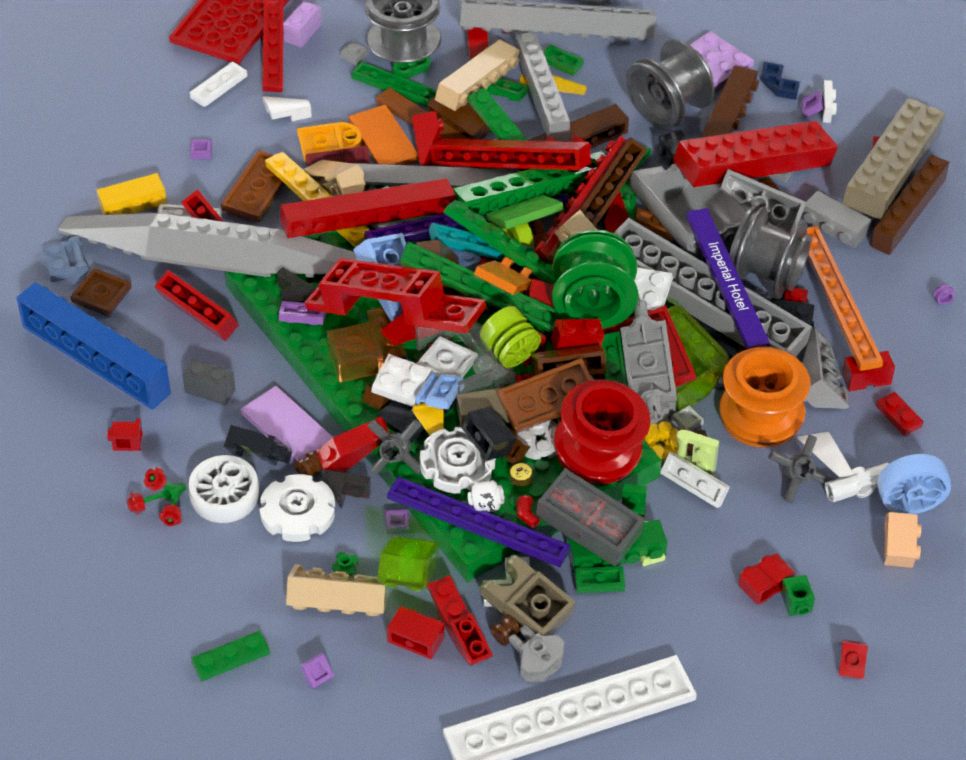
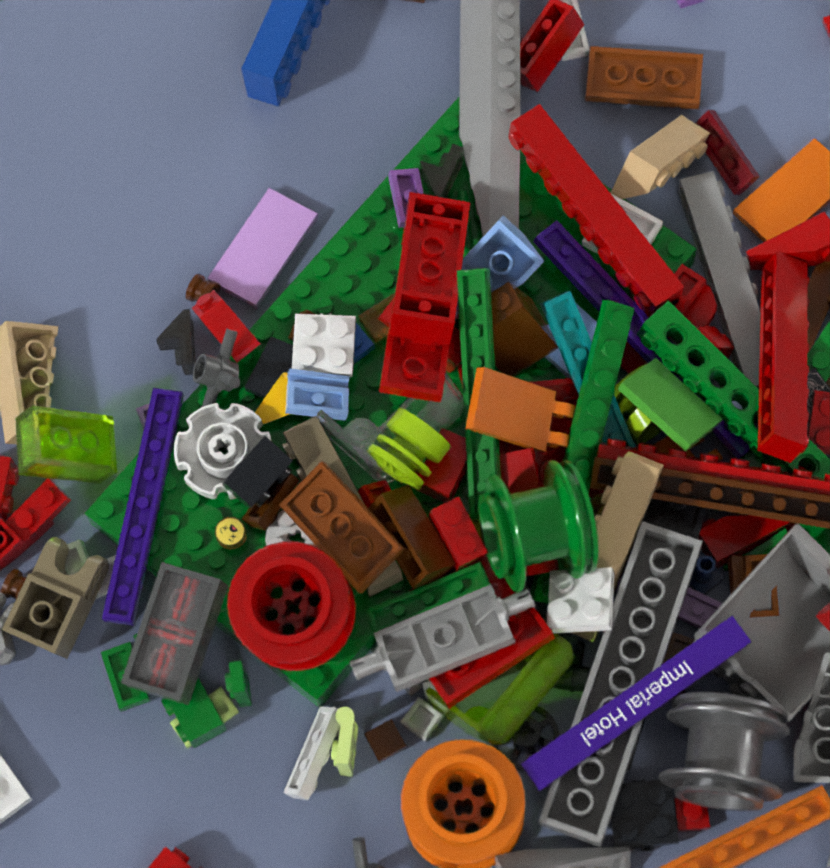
camera: 80 degrees right, 20 degrees up
(126, 435) = (190, 83): red brick -> none
(155, 480) = (96, 131): red plant -> none
(196, 305) = (405, 80): red brick -> none
(209, 382) = (294, 138): dark grey brick -> none
(223, 489) = (141, 212): white piece -> none
(267, 449) = (201, 223): black hips -> none
(284, 107) = (802, 58): white slope -> none
(297, 507) = (155, 304): white piece -> none
(308, 189) = (646, 122): yellow plate -> none
(328, 137) = (759, 128): light orange plate -> none
(342, 558) = (77, 387): green plate -> none
(355, 351) = (354, 276): clear orange container -> none
(448, 358) = (365, 395): white plate -> none
(486, 496) = (175, 502): white head -> none
(523, 511) = (172, 552): red arm -> none
(662, 433) = (369, 712): yellow plate -> none

